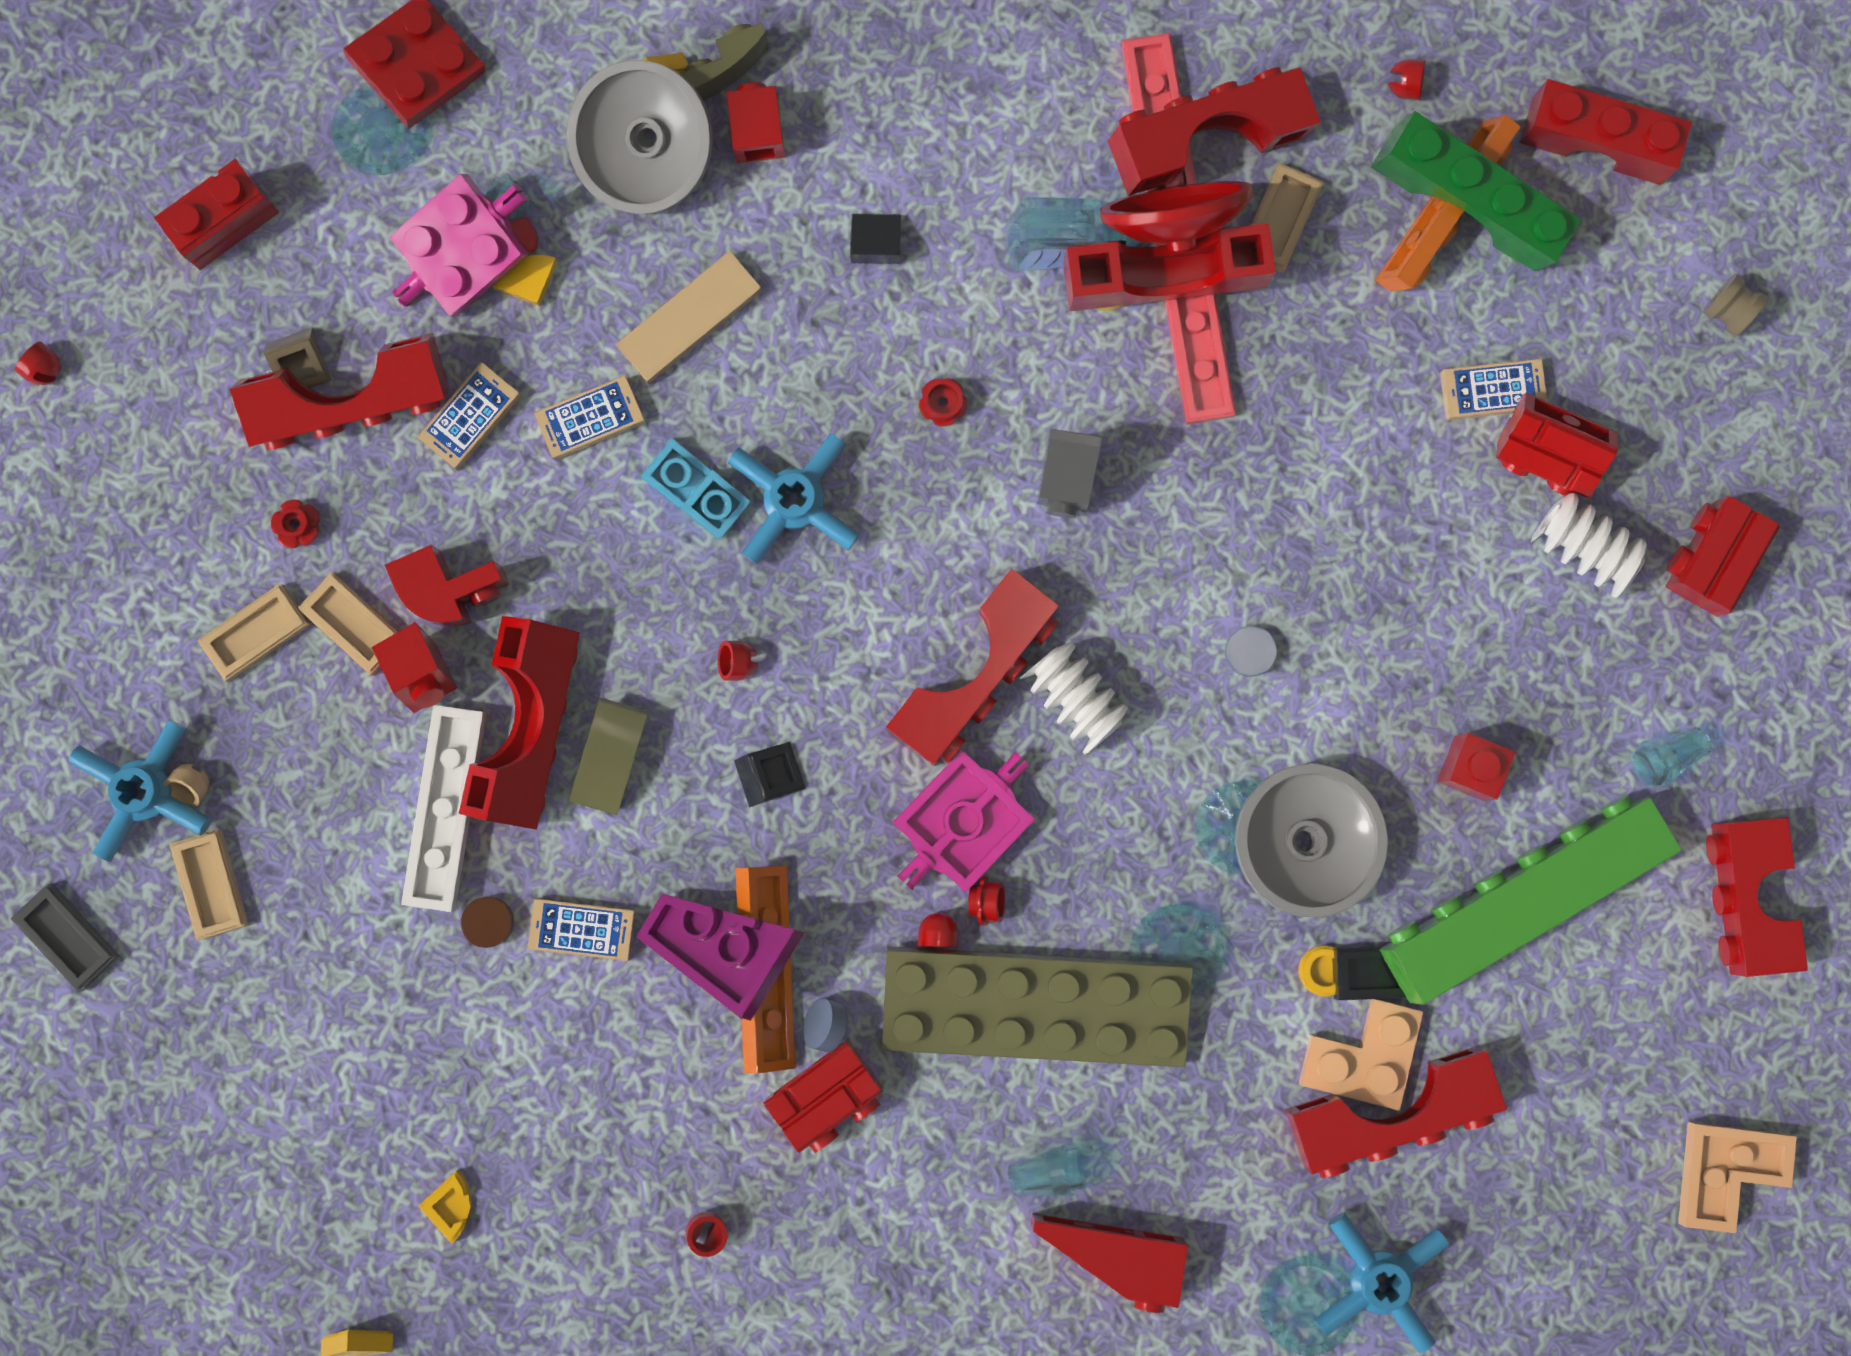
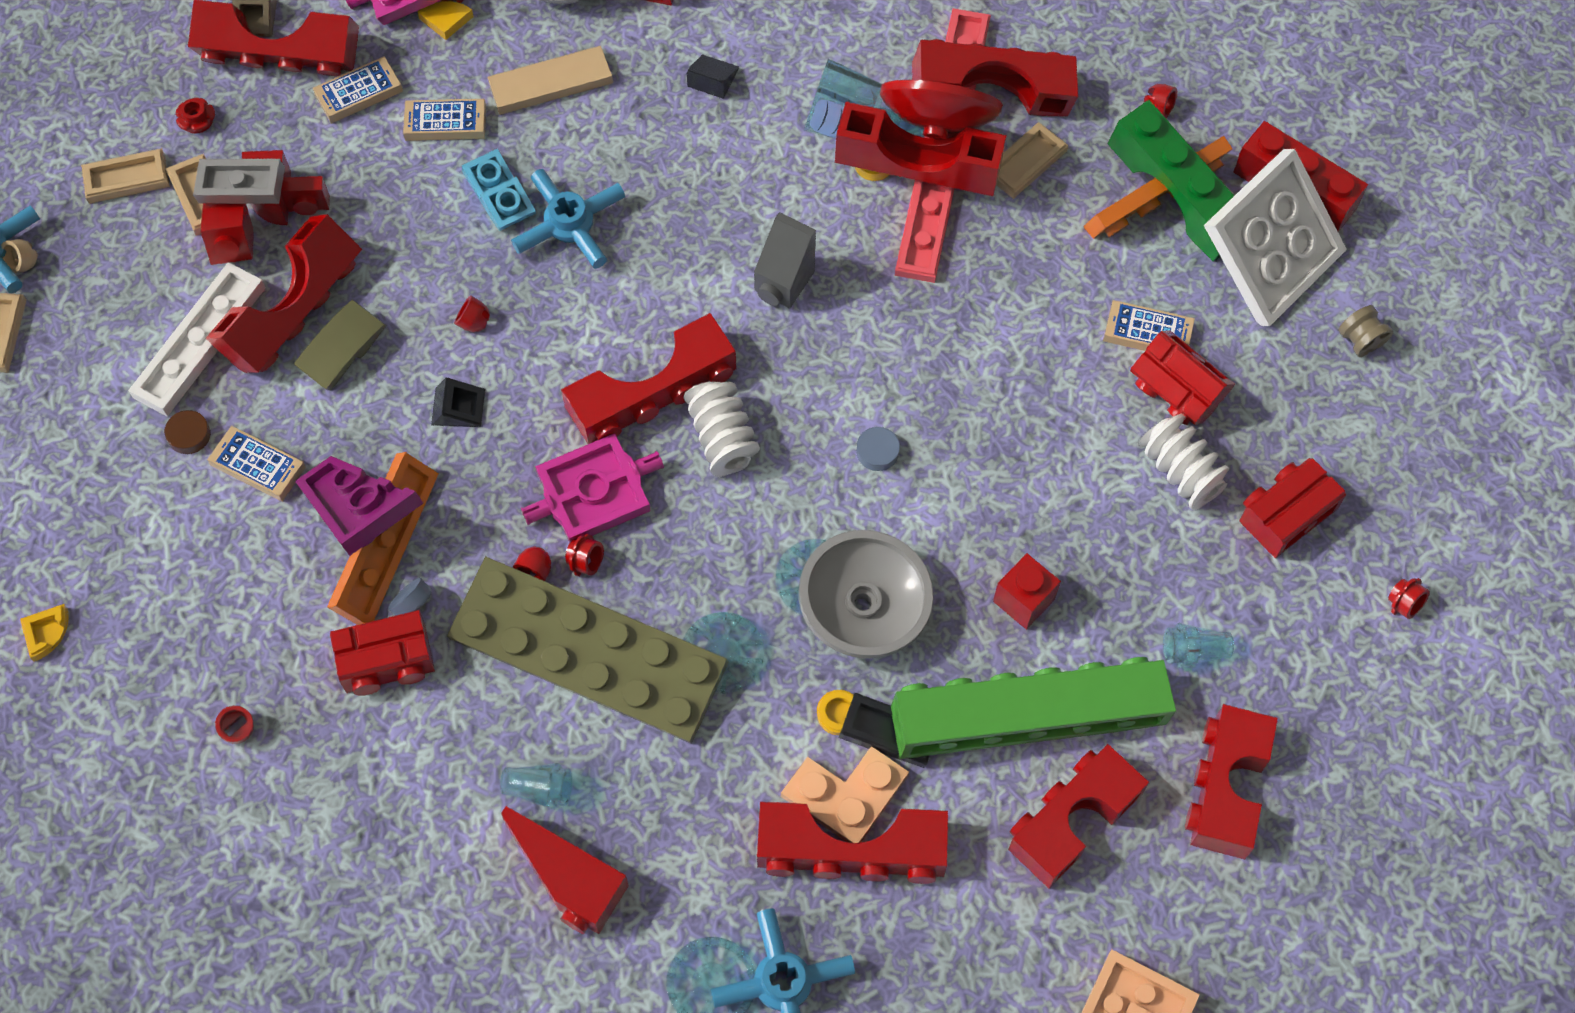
camera: 20 degrees right, 20 degrees down
(405, 612) = (239, 181): none -> light grey plate
(947, 389) = (713, 185): red plate -> none
(1588, 1028) = (1102, 784): none -> red arch
(1609, 231) = (1275, 237): none -> white plate

